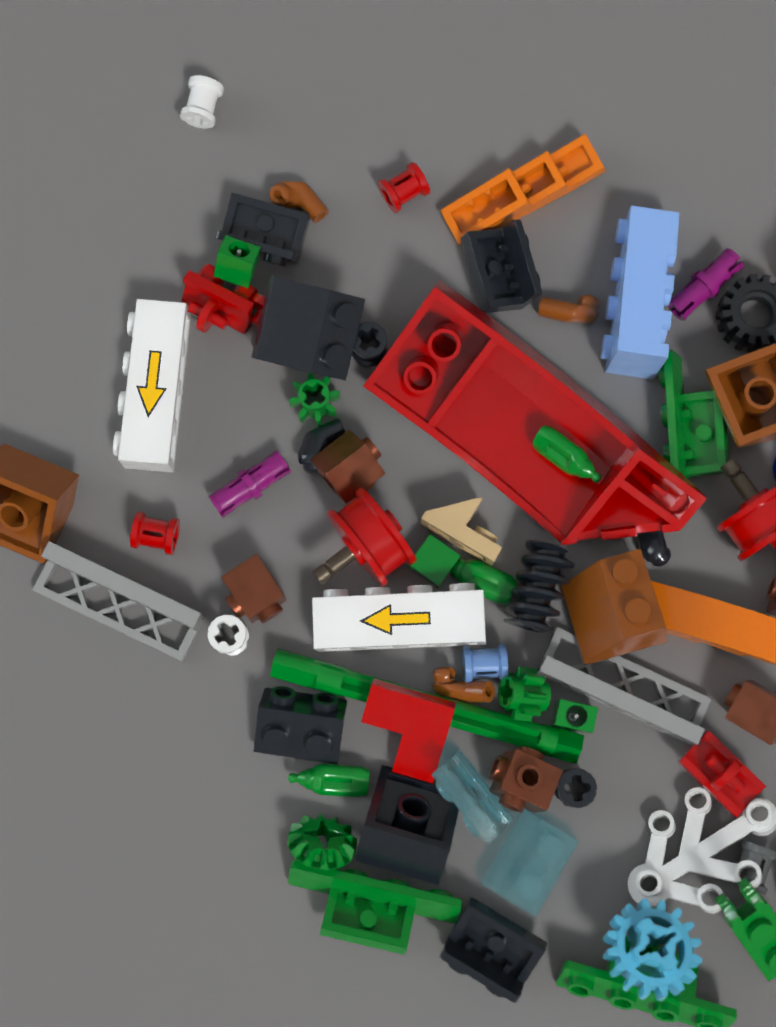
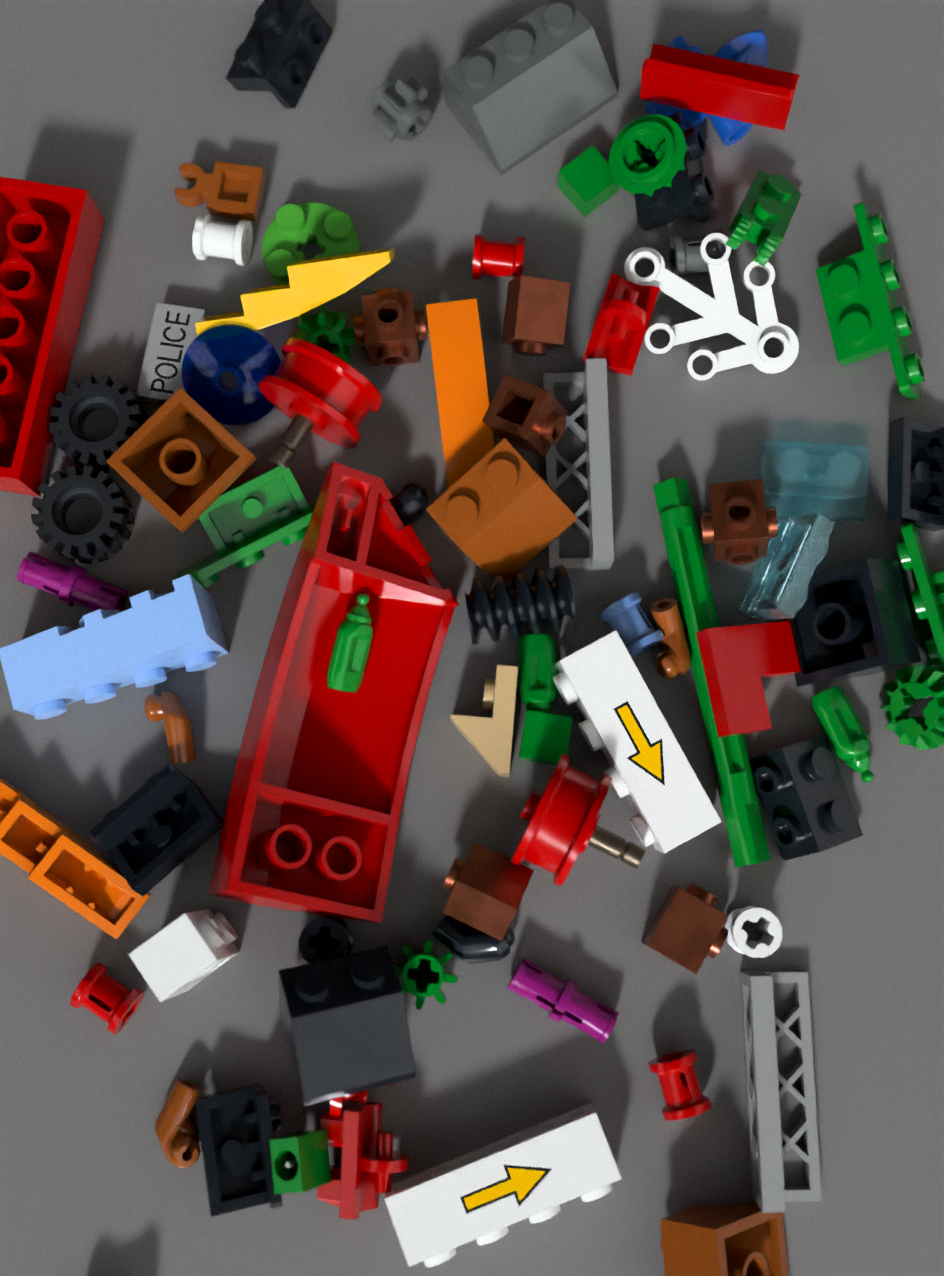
camera: 110 degrees left, 0 degrees up
(407, 247) = (185, 952): none -> white brick
(524, 694) = (645, 565): green gear -> none
(574, 716) = (639, 503): green piece -> none
(583, 798) = (716, 453): black bush -> none
(659, 964) = (840, 285): medium azure gear -> none
(679, 660) = (526, 416): none -> copper brick

